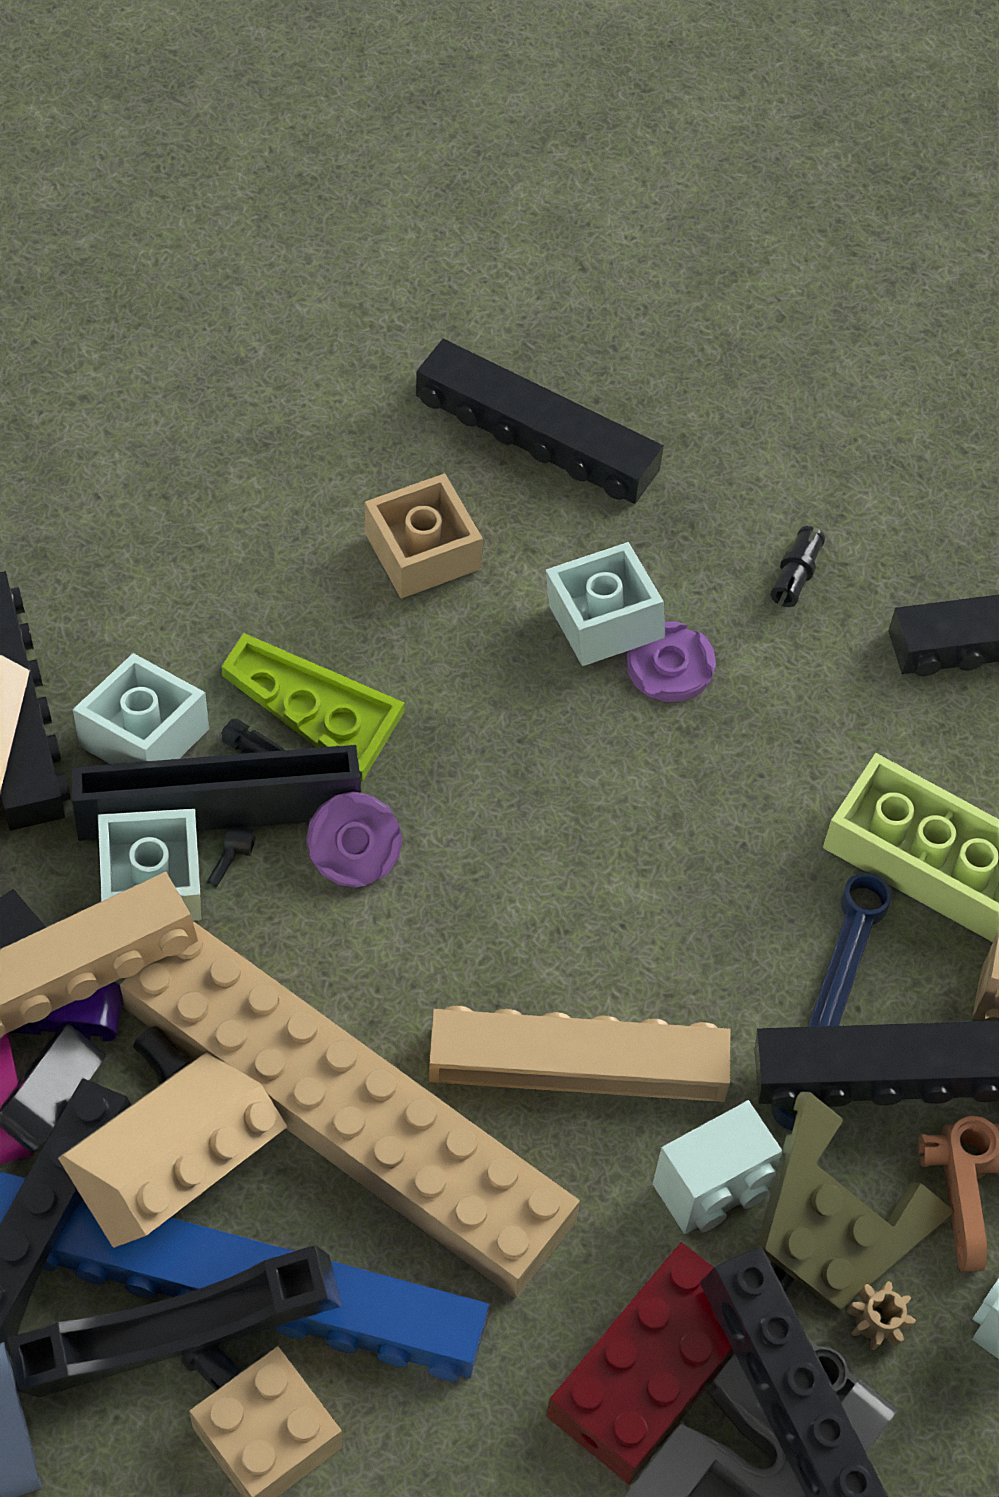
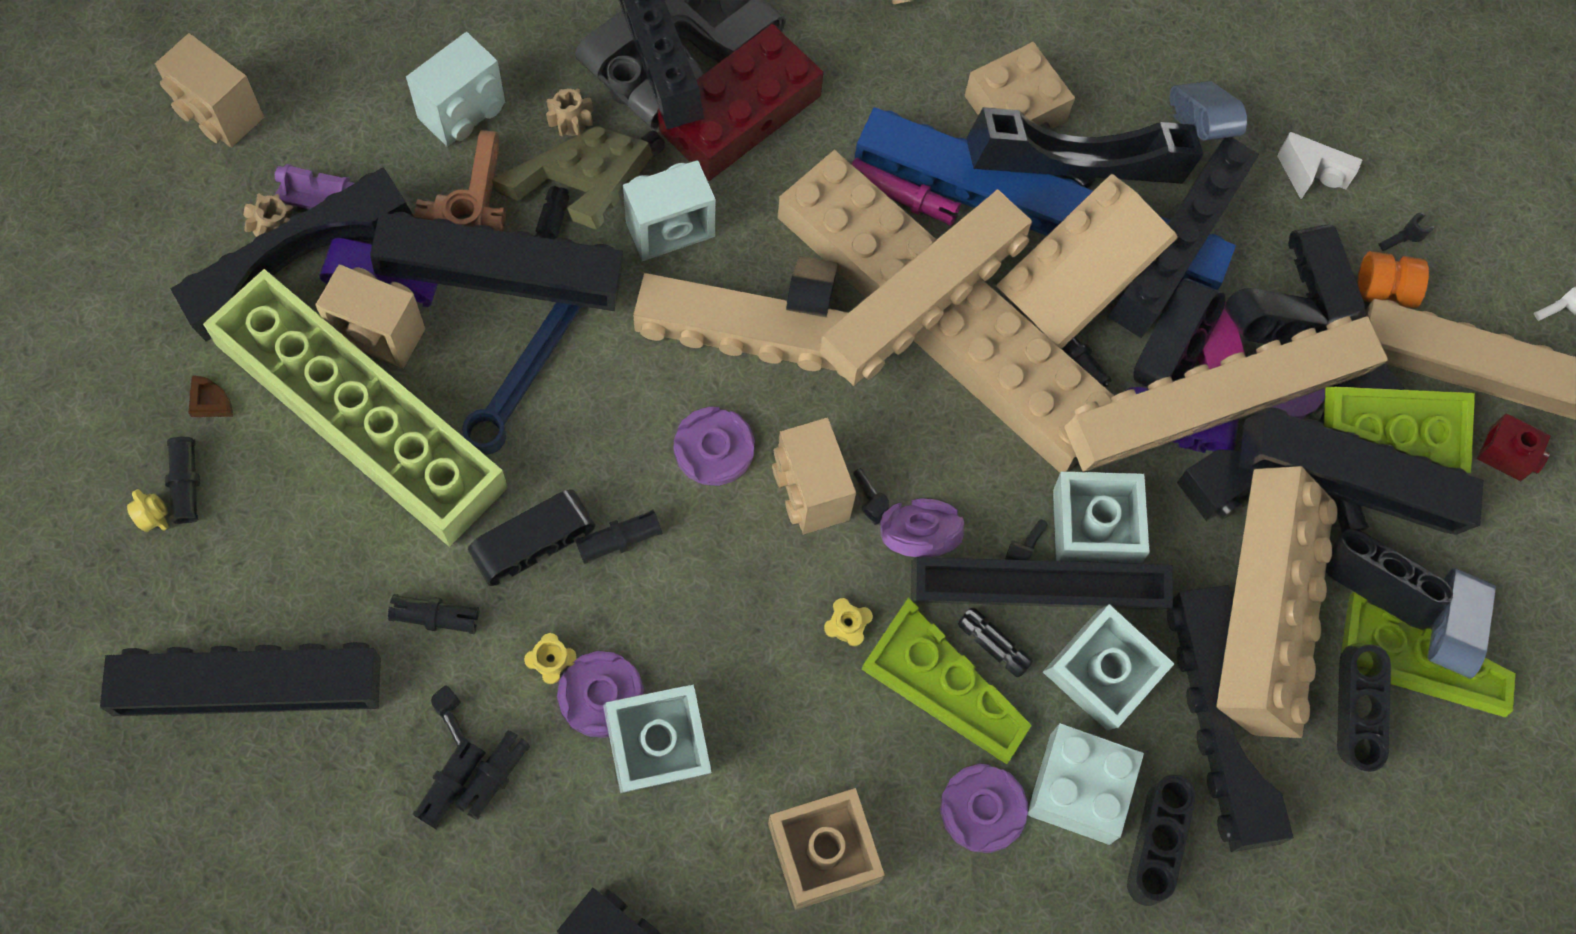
camera: 175 degrees left, 10 degrees up
(91, 561) = (1175, 825): none -> black beam
(165, 617) = (1085, 784): none -> light aqua brick
(274, 612) = (978, 821): none -> medium lavender tile
(375, 1073) = (925, 288): none -> tan brick
(405, 873) = (877, 503): none -> black hand
(406, 1265) = (909, 194): none -> dark pink pin
(424, 761) = (837, 628): none -> light yellow plate
(484, 866) = (814, 476): none -> tan brick
(520, 1083) = (812, 286): none -> black beam
(604, 934) = (710, 458): none -> medium lavender tile
(688, 805) = (618, 536): none -> black pin
(730, 674) = (550, 646): none -> light yellow plate
(758, 577) = (492, 775): none -> black pin
(780, 789) = (530, 535): none -> black beam
(824, 632) = (443, 703): none -> black hand
(861, 712) = (433, 613): none -> black pin
(865, 1161) = (552, 213): none -> black axle

